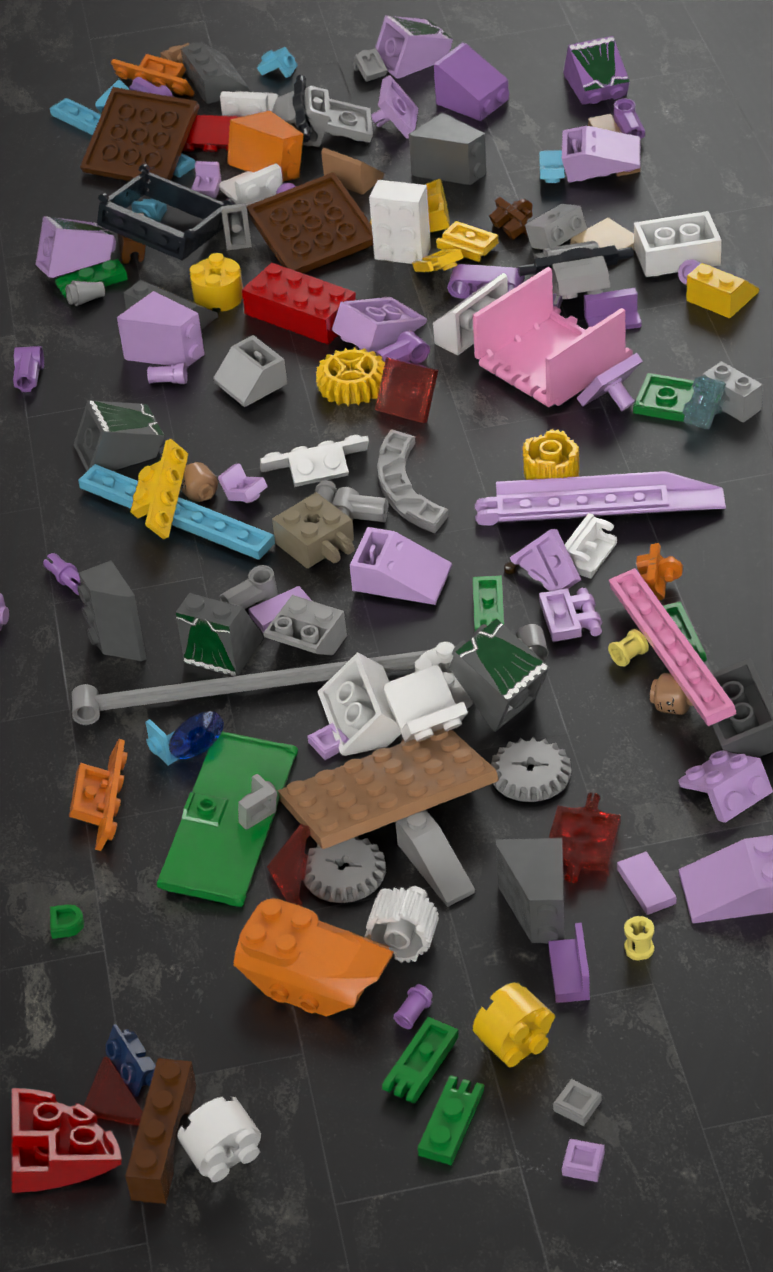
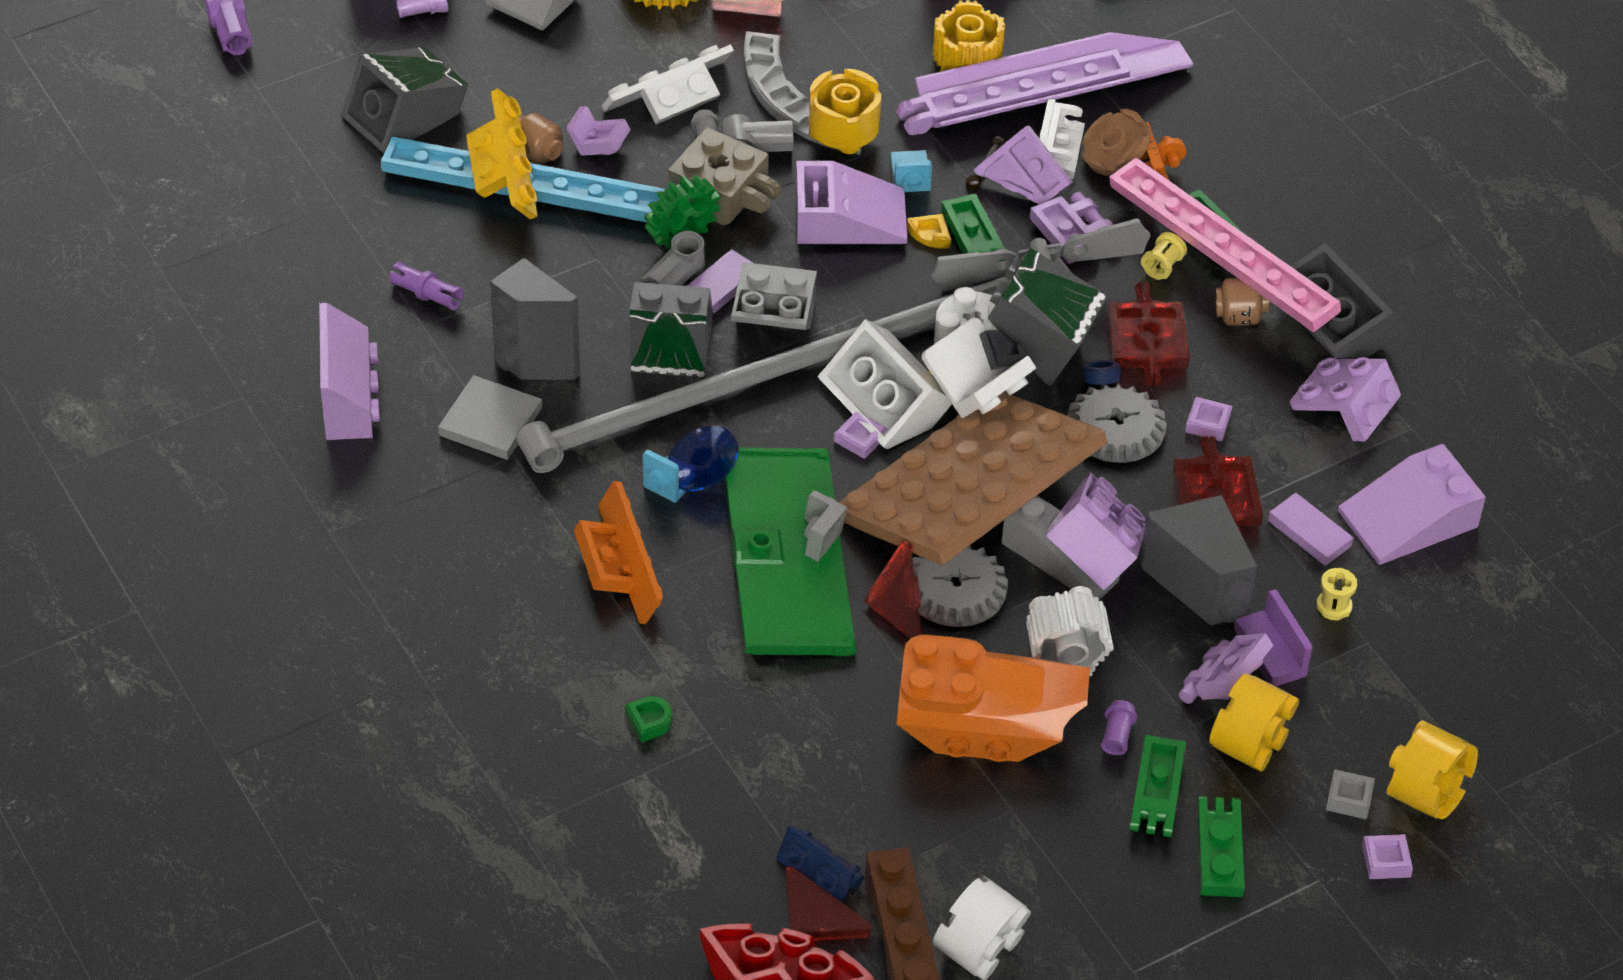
camera: 25 degrees left, 5 degrees up
(61, 673) = (489, 417): none -> light grey tile
(270, 548) = (682, 209): none -> green gear
(426, 496) = (844, 110): none -> yellow brick
(450, 693) = (1000, 349): none -> black tile
(458, 598) = (930, 231): none -> yellow tile
(459, 847) = (1098, 531): none -> lavender slope
(464, 551) = (911, 170): none -> medium azure bracket
(525, 972) = (1224, 666): none -> lavender plate
(535, 728) = (1101, 372): none -> dark blue tile
(571, 627) = (1106, 242): none -> light grey piece
(586, 706) = (1148, 334): none -> clear red plate
(606, 780) = (1208, 418): none -> lavender tile
(629, 552) = (1115, 141): none -> medium nougat tile
(643, 1097) = (1431, 770): none -> yellow brick

